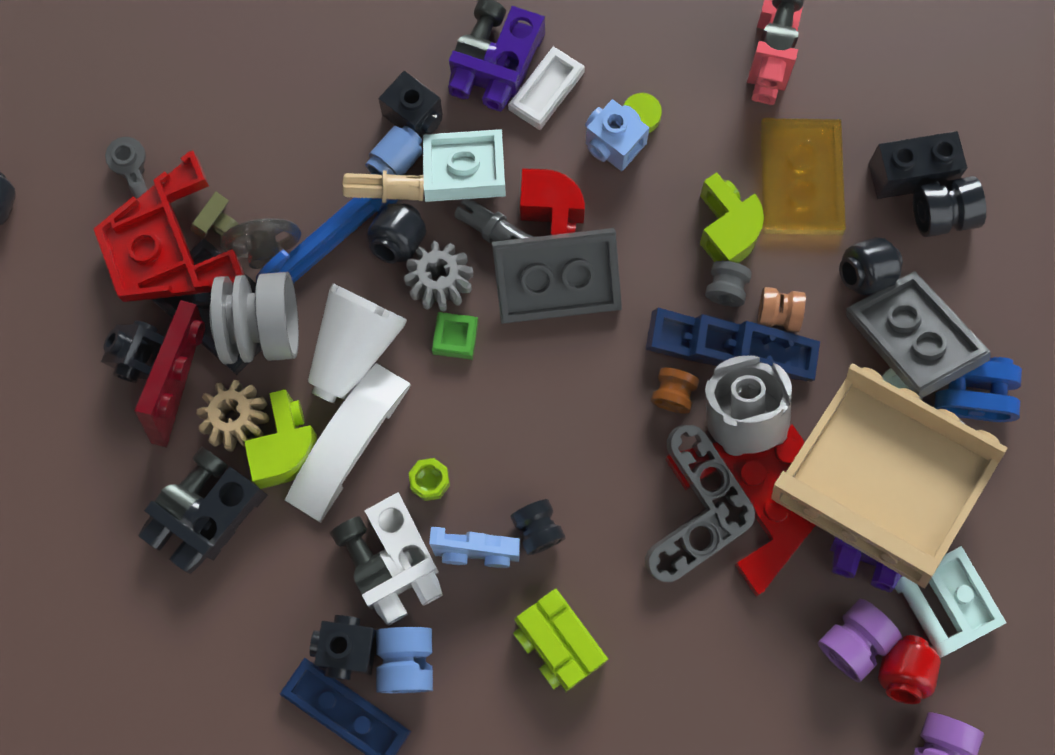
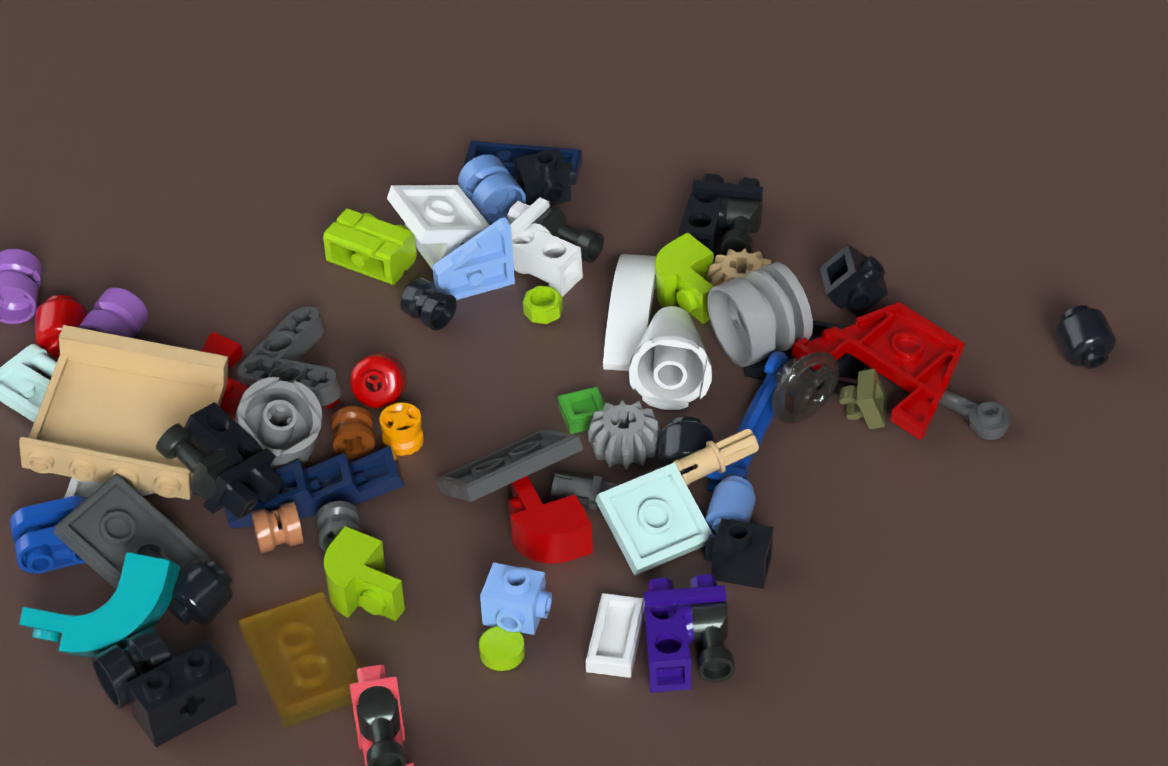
camera: 155 degrees right, 30 degrees down
(169, 374) = (809, 267): dark red wing -> none
(481, 622) = (437, 217): none -> white bracket
(629, 435) = (389, 371): none -> red head
(632, 371) = (402, 428): none -> light orange wheel
(812, 346) = (223, 461): none -> black hips
(965, 253) = (137, 604): none -> teal arch

